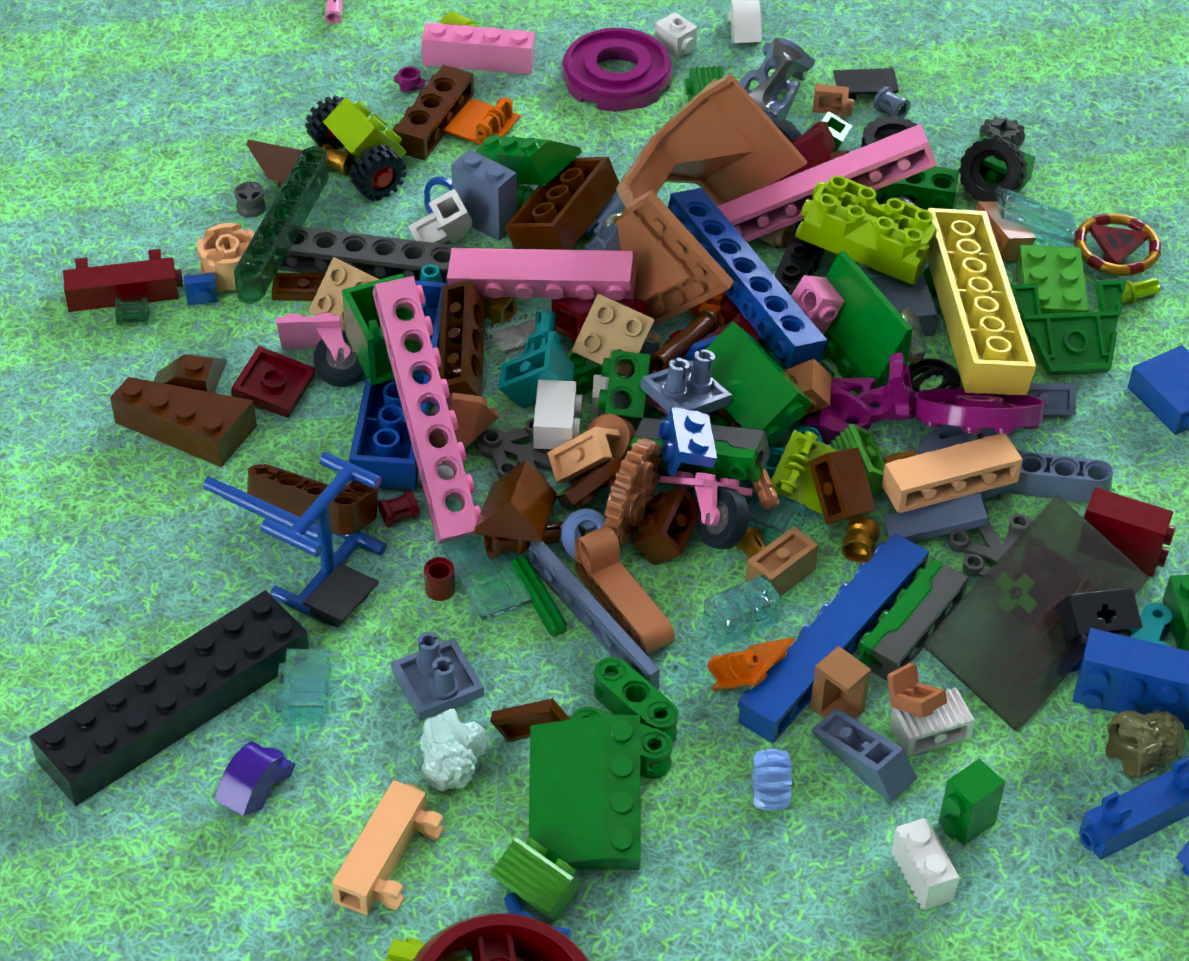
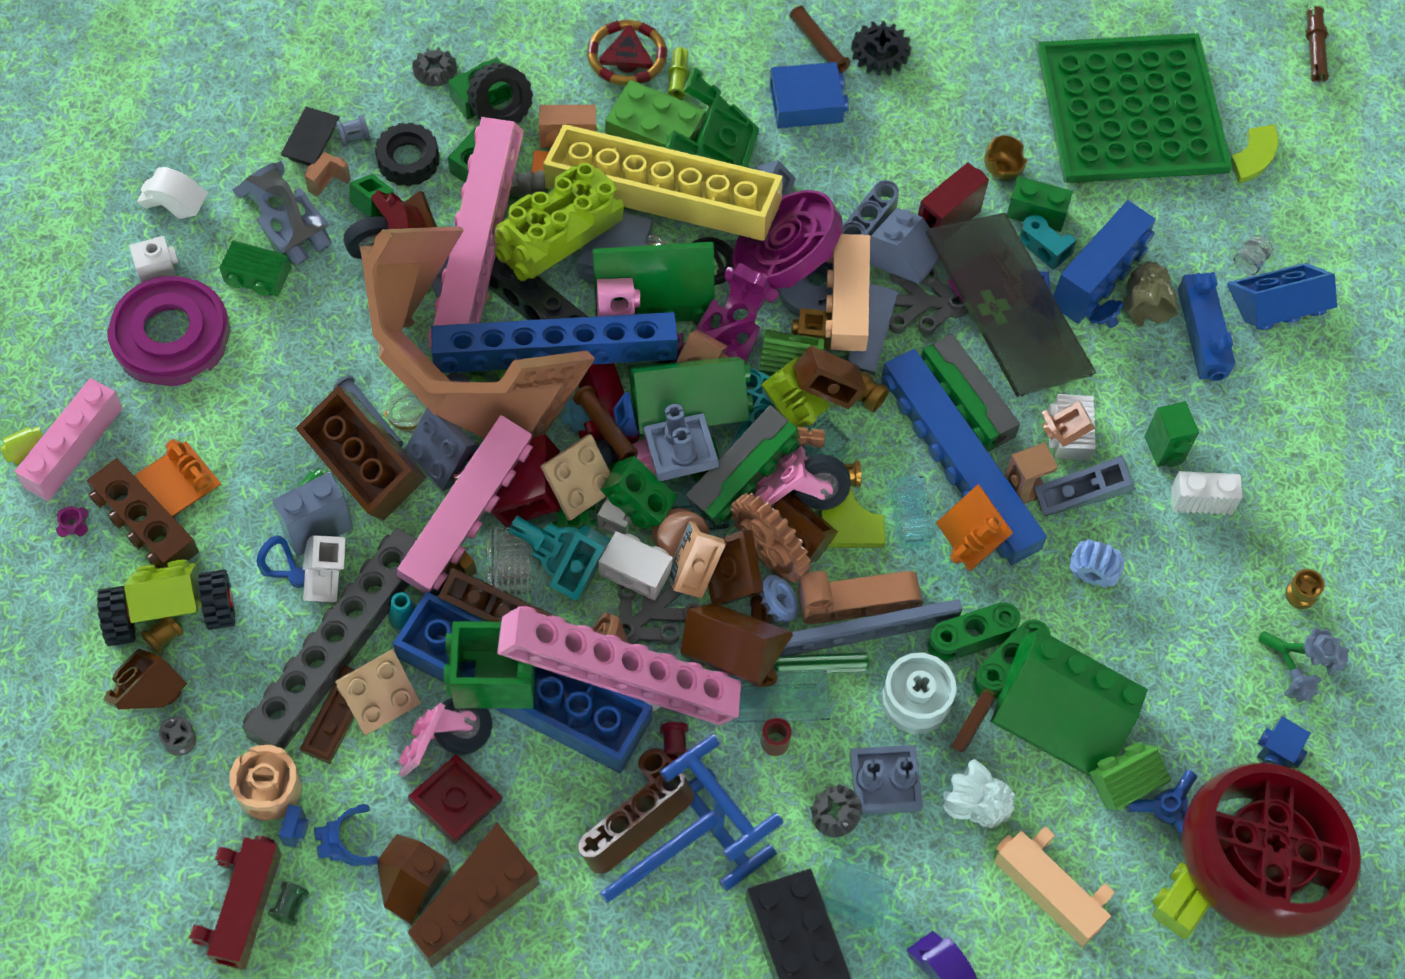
camera: 70 degrees left, 15 degrees up
(204, 316) = (331, 844): none -> blue helmet
(281, 225) = (270, 726): clear green beam -> none
(339, 595) = (779, 841): black piece -> none
(385, 648) = (848, 815): none -> dark grey gear
(531, 158) = (278, 457): green slope -> none
(539, 667) = (918, 693): none -> light aqua wheel
(686, 439) = (751, 470): blue bracket -> none
(705, 571) = (855, 525): none -> lime tile
(784, 560) = (875, 459): medium nougat panel -> none
(1035, 491) = (903, 246): none -> sand blue slope
(1036, 215) = (566, 91): clear light blue piece -> none
(1095, 717) = (1107, 313): none -> blue plant
(1102, 610) = (1036, 264): black brick -> none

